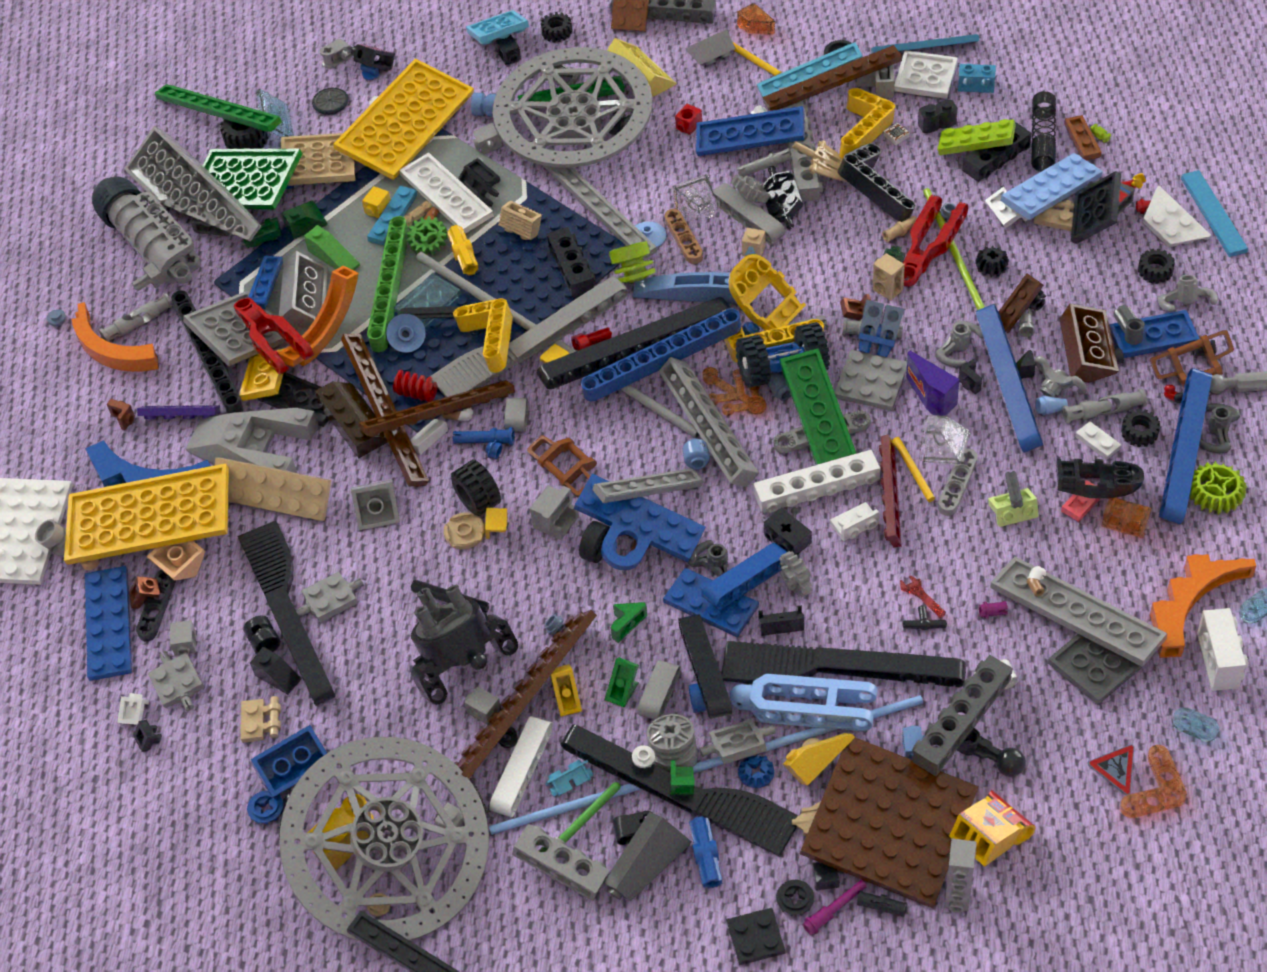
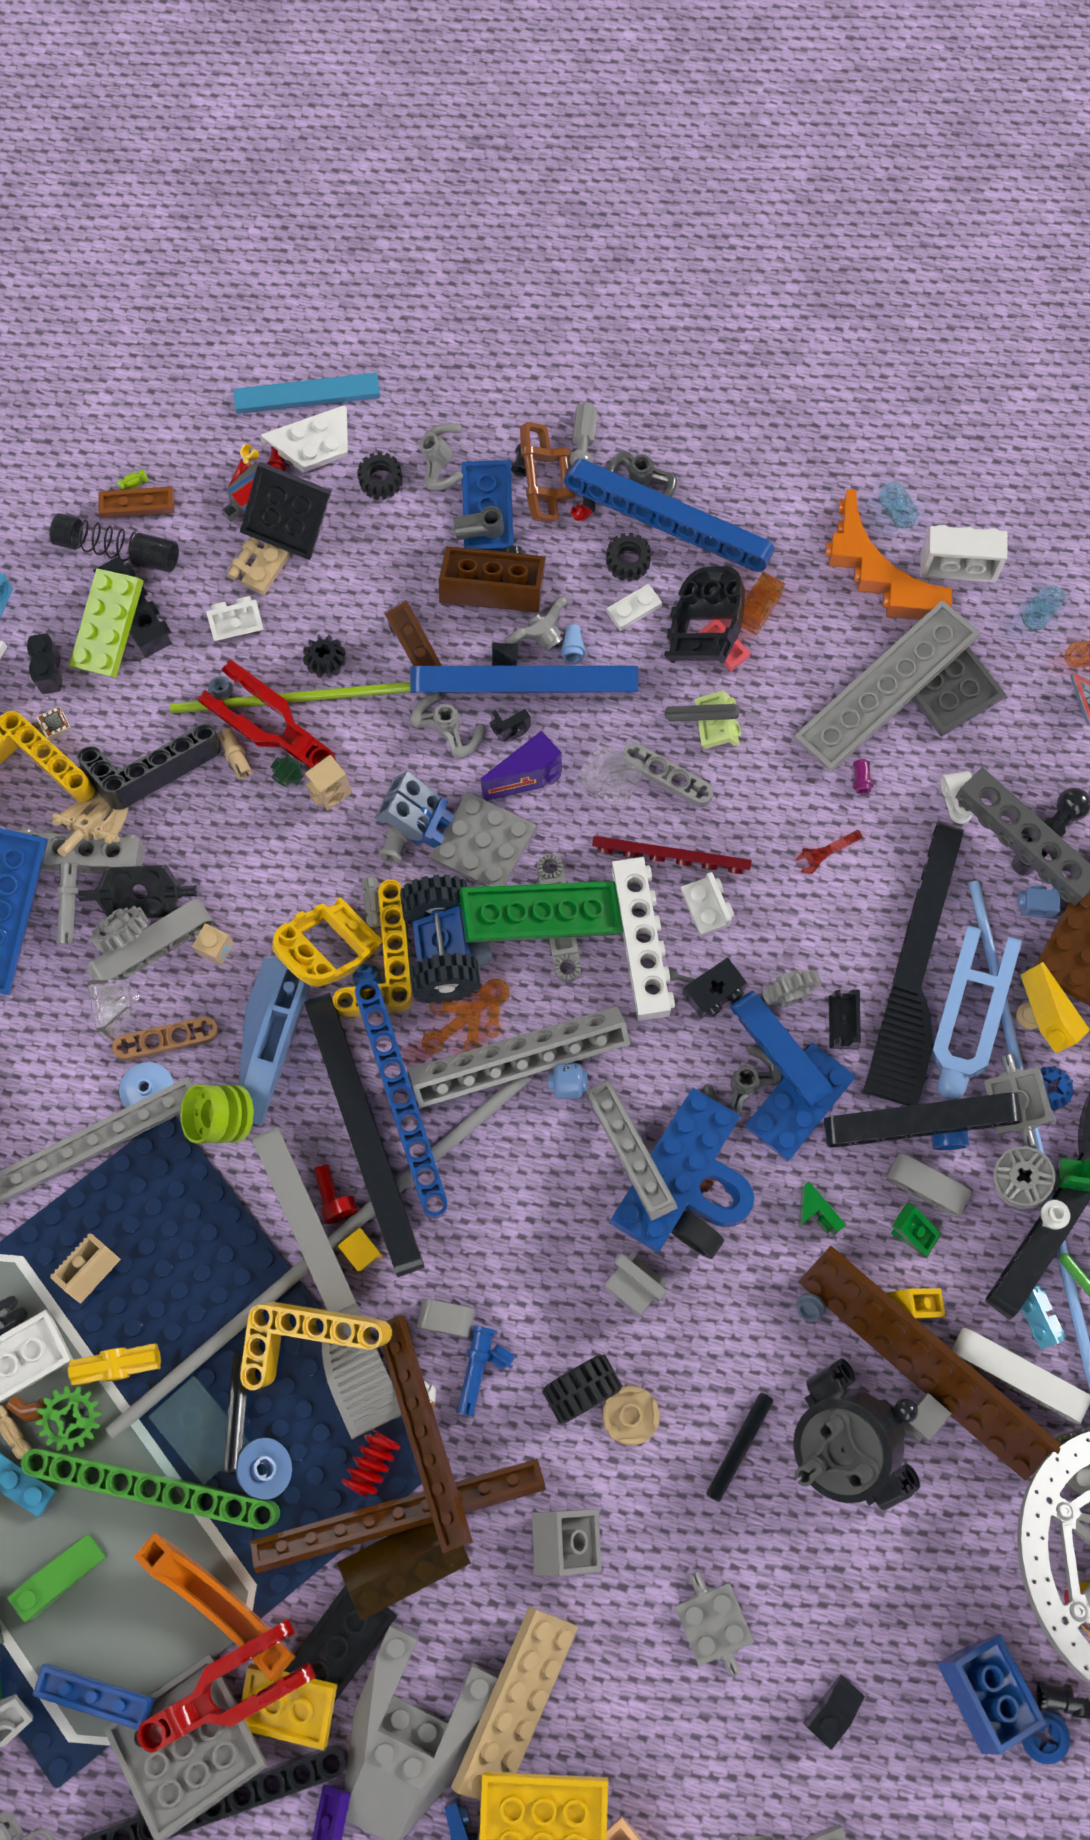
camera: 85 degrees left, 20 degrees up
(253, 719) = (903, 1749): tan plate -> none
(261, 634) = (785, 1728): black wheel -> none
(273, 568) = (652, 1707): black piece -> none
(302, 289) = (130, 1632): light grey slope -> none
(429, 435) = (460, 1461): white slope -> none
(495, 520) = (635, 1367): yellow panel -> none
(571, 262) = (139, 1205): black brick -> none
(585, 464) = (571, 1264): dark orange bar -> none
(853, 308) = (362, 833): copper bracket -> none
(913, 469) = (636, 821): yellow bar -> none
(923, 623) = (869, 856): black piece -> none
(1026, 326) = (440, 642): light grey pin -> none
(1033, 580) = (842, 719): arm -> none
(1051, 186) = (218, 557): light blue plate -> none
(1090, 409) = (588, 589): light grey piece -> none
(1214, 492) = (742, 491): lime gear -> none

